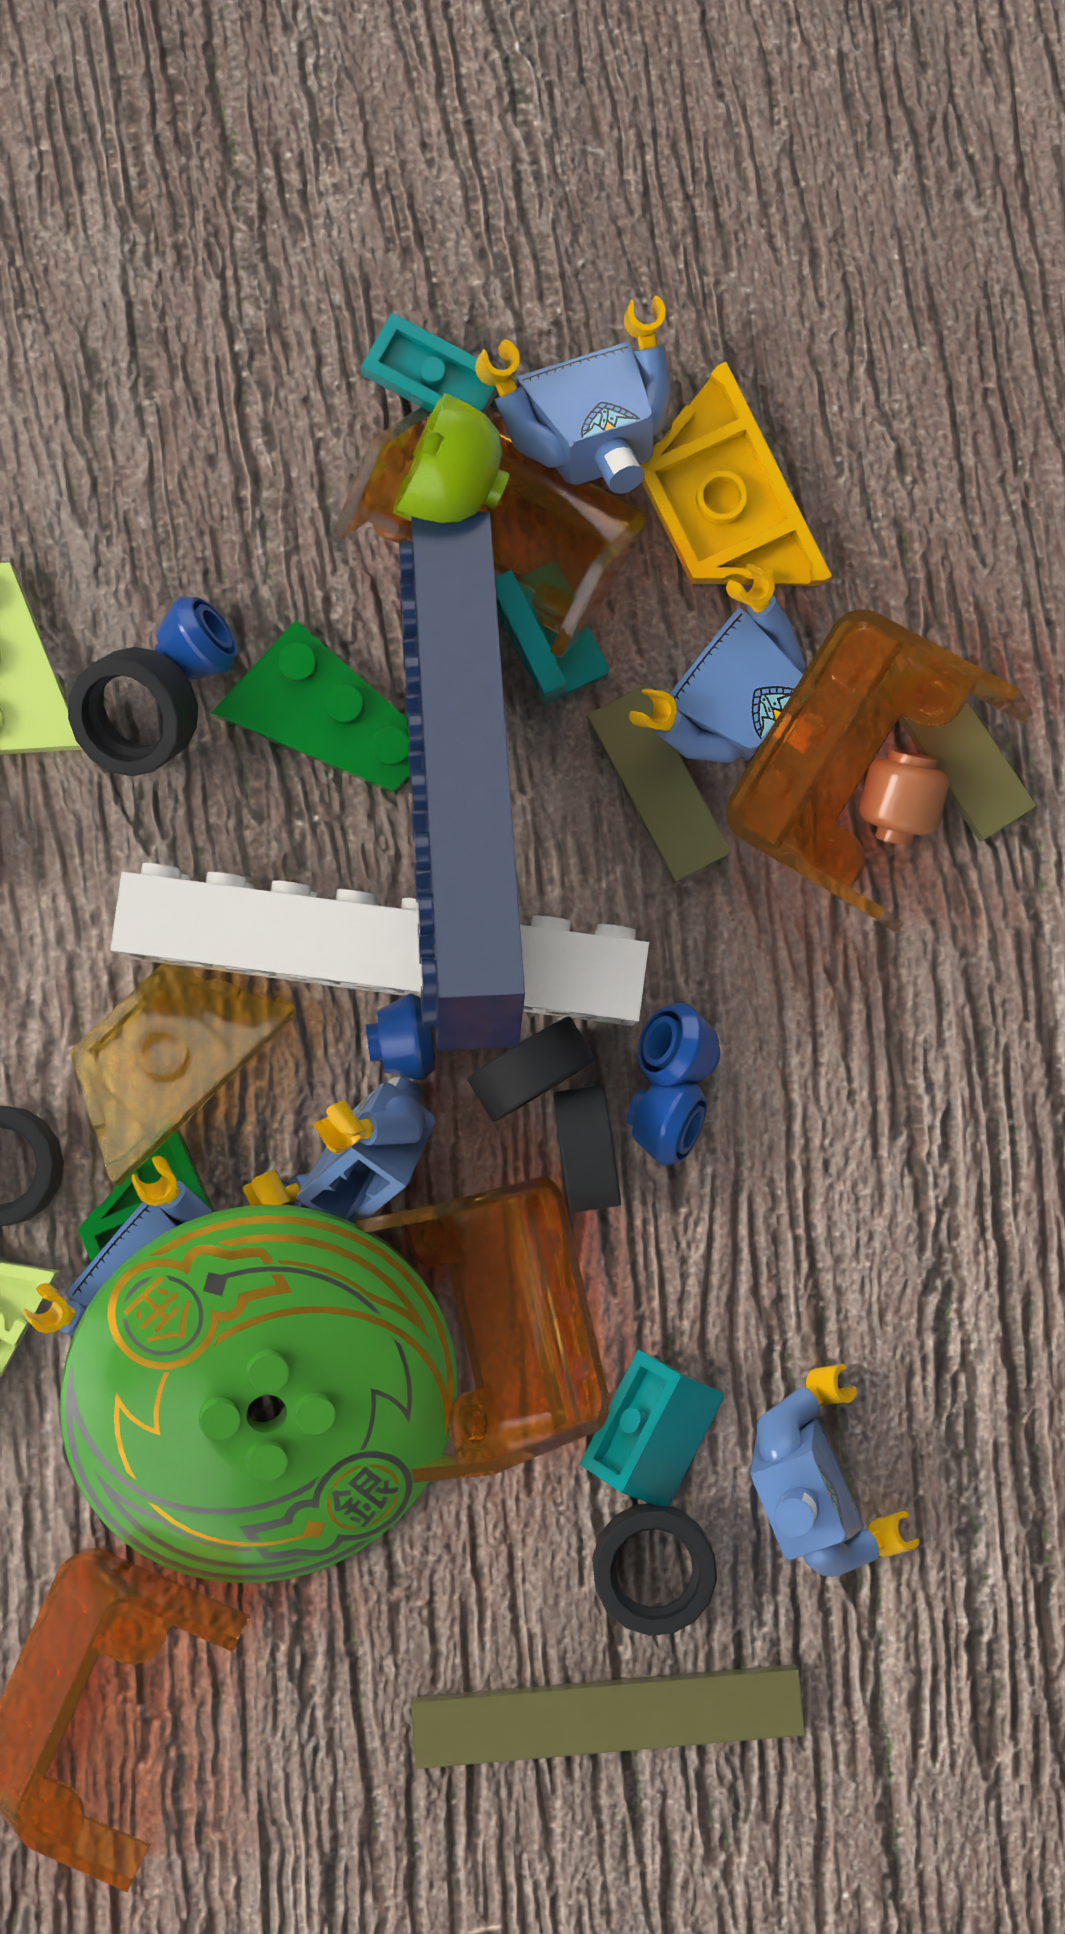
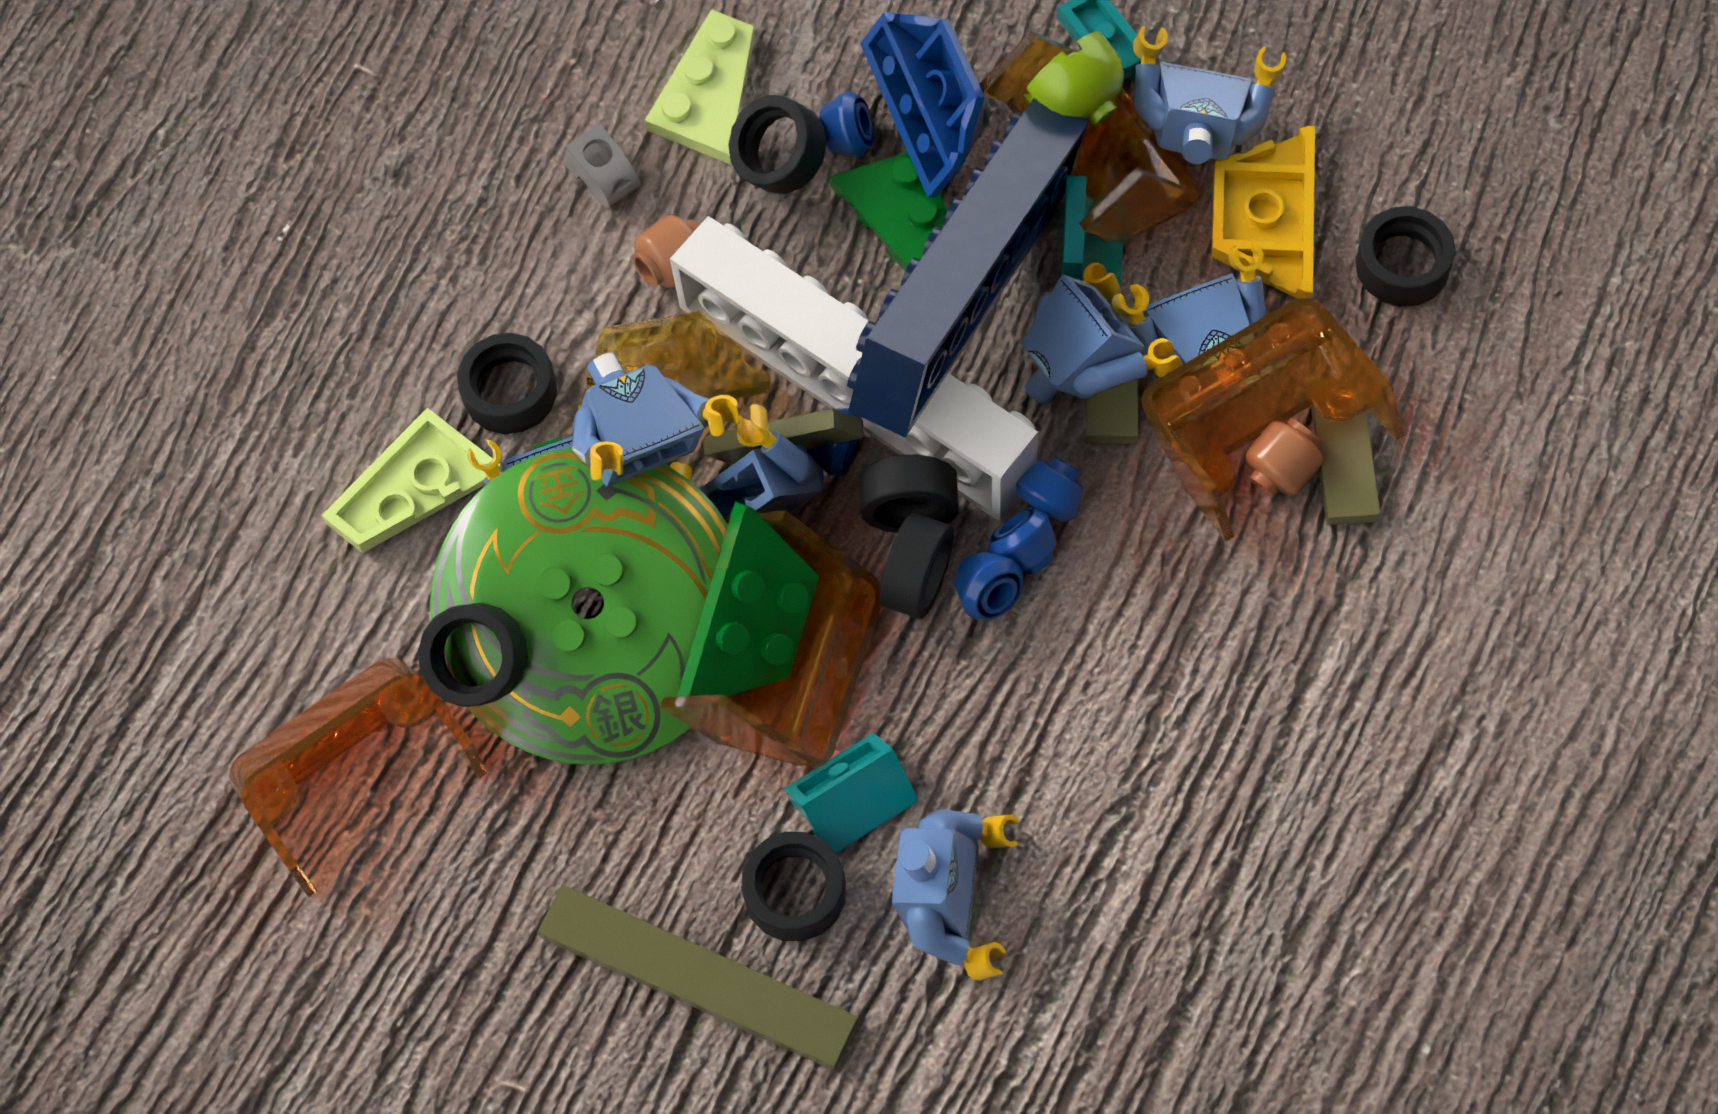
camera: 40 degrees right, 20 degrees down
(82, 908) = (657, 246): none -> nougat head
(170, 1585) = (433, 662): none -> black tyre
(207, 1195) = (641, 420): none -> medium blue torso
(272, 559) = (927, 92): none -> blue wedge
(356, 1083) = (809, 430): none -> olive tile
(446, 1320) = (750, 611): none -> green wing
(620, 781) = (1085, 343): none -> medium blue torso
(680, 973) = (1052, 488): none -> blue cone
(932, 434) = (1414, 224): none -> black tyre

